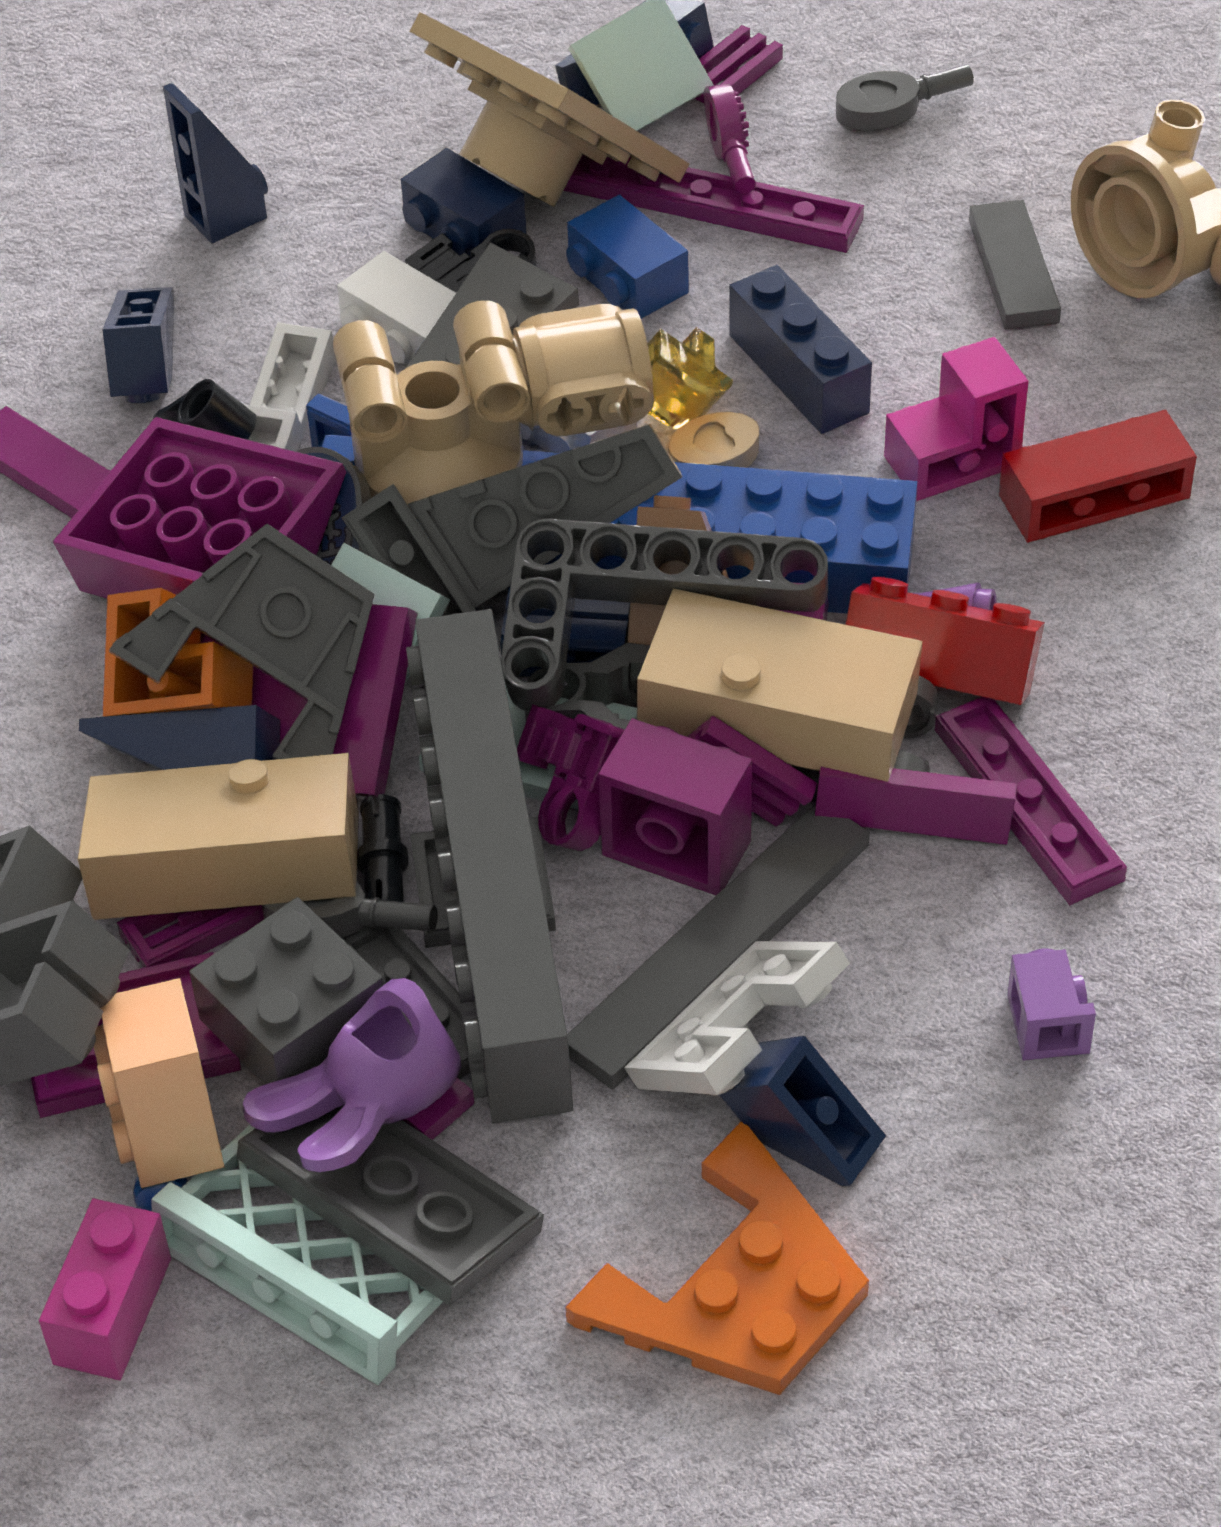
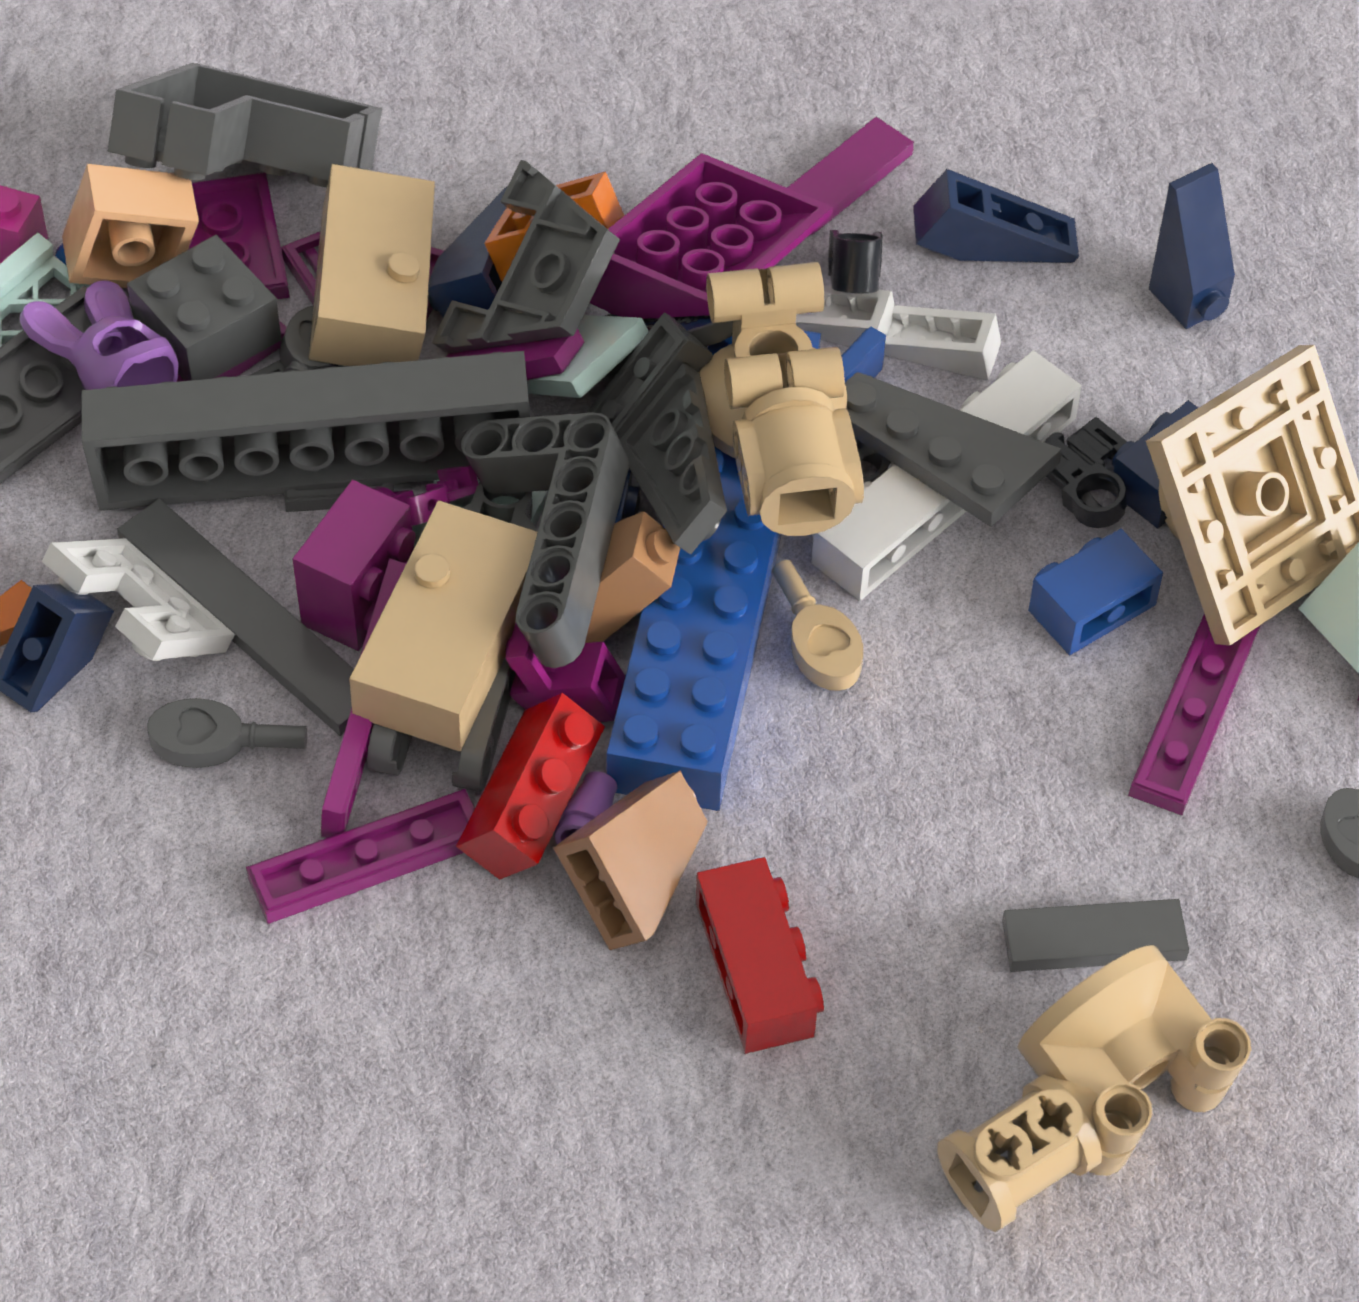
camera: 90 degrees right, 5 degrees up
(684, 377) = (880, 602): clear yellow brick -> none
(729, 133) = (1287, 686): magenta piece -> none
(800, 349) = (949, 718): dark blue brick -> none
(900, 944) = (211, 733): none -> dark grey piece
(966, 427) = (820, 835): dark pink brick -> none
(1011, 554) = (634, 857): none -> slope
(1049, 1006) = (122, 826): medium lavender brick -> none

